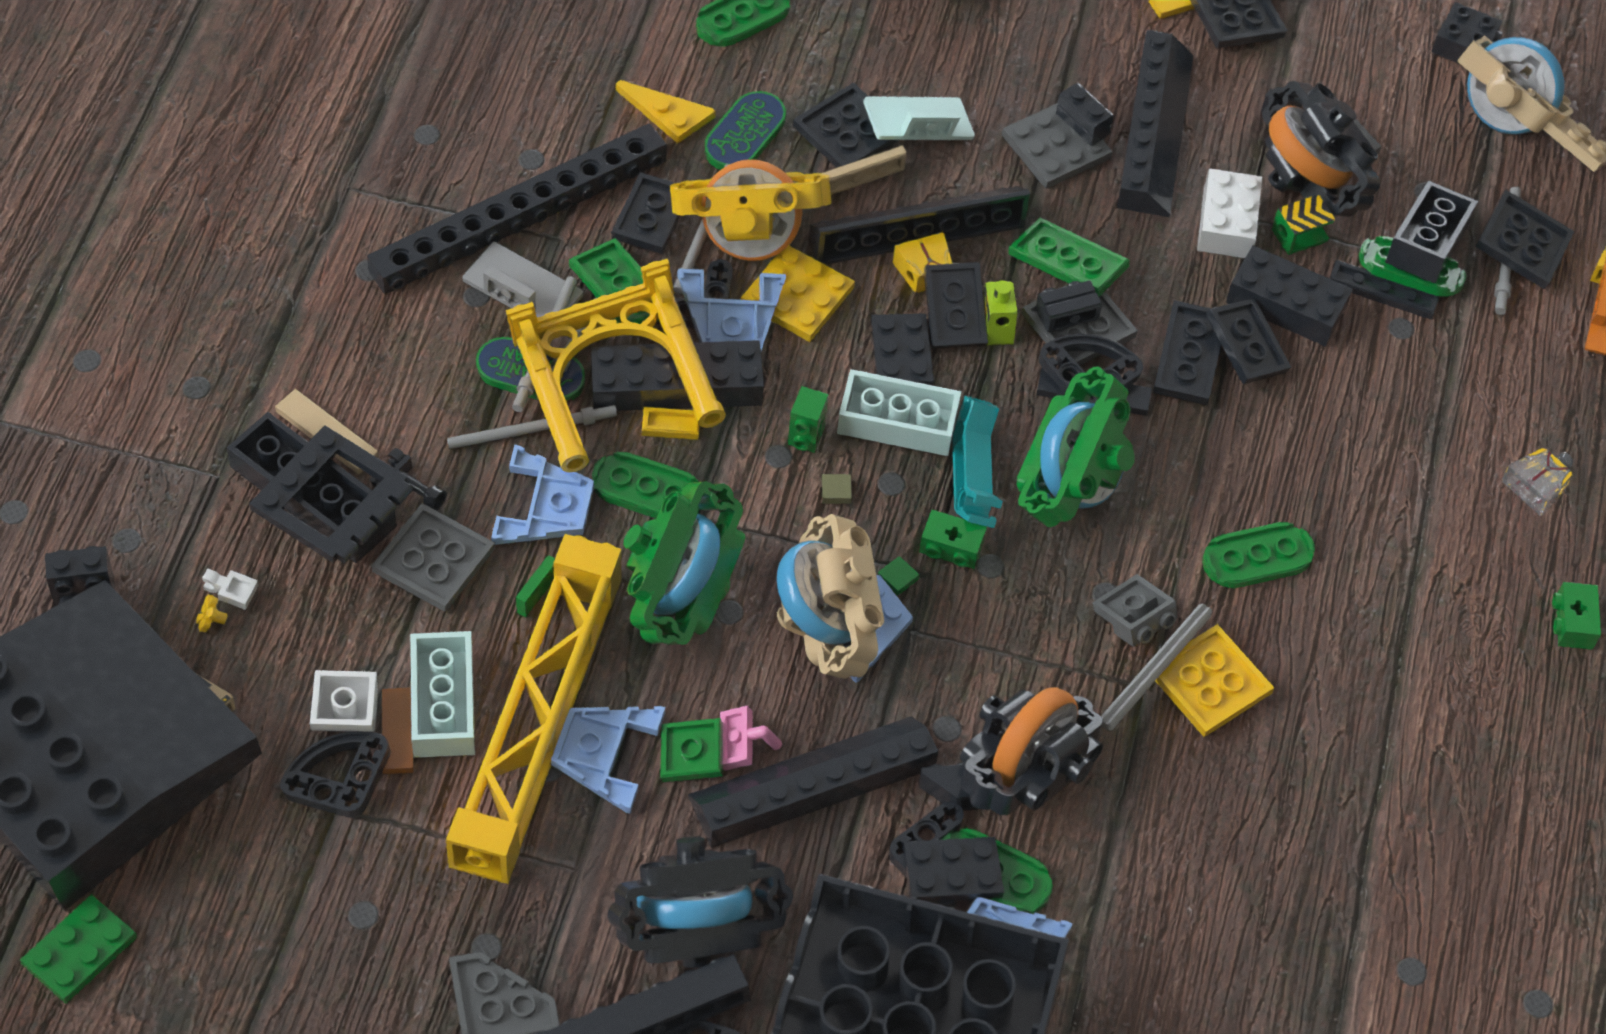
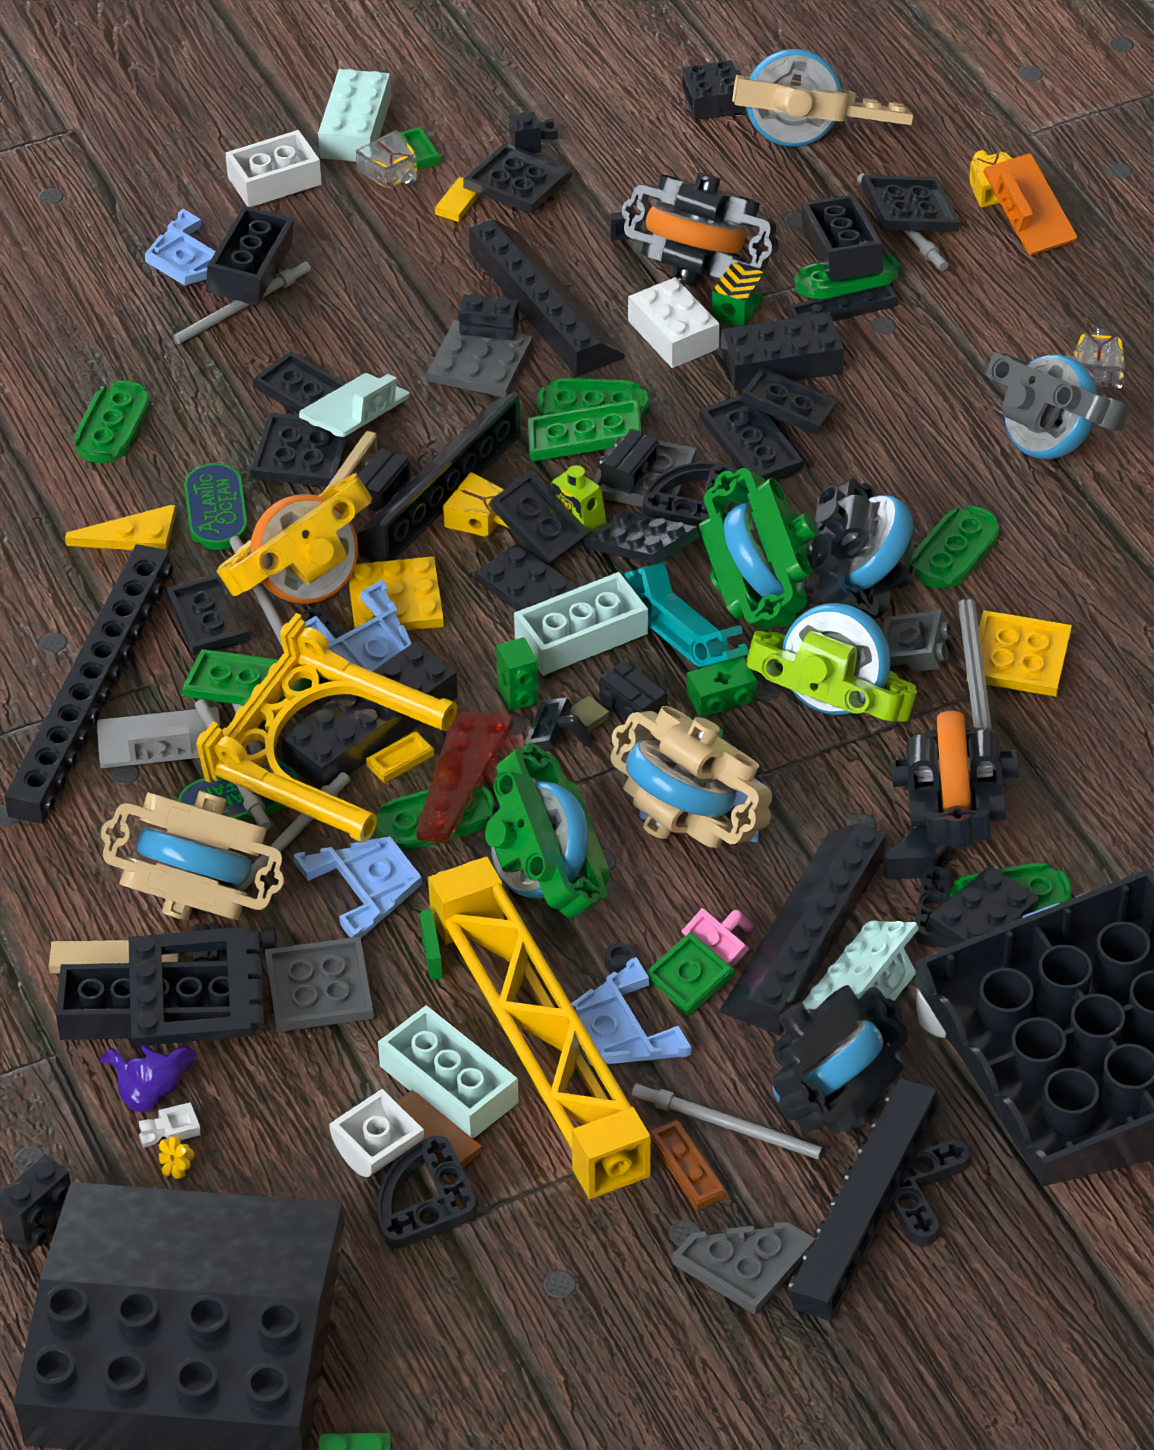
camera: 35 degrees left, 10 degrees down
(248, 542) = (149, 1078): none -> dark purple piece
(427, 395) = (192, 856): none -> tan piece
(538, 896) = (687, 1165): none -> dark orange tile
(575, 837) = (666, 1100): none -> light grey bar
(659, 696) = (617, 956): none -> black tile
(714, 455) = (460, 768): none -> clear red wing
(798, 475) = (550, 721): none -> black plate
(820, 847) = (871, 960): none -> light aqua bracket
(878, 191) = (384, 477): none -> black brick
(880, 498) = (630, 691): none -> black brick
(902, 71) = (295, 382): none -> black tile
(1011, 375) = (640, 537): none -> black plate
(1039, 588) = (835, 664): none -> lime piece
(1105, 228) = (576, 394): none -> green tile
(1157, 505) = (861, 547): none -> black piece
(1444, 489) = (1052, 404): none -> dark grey piece

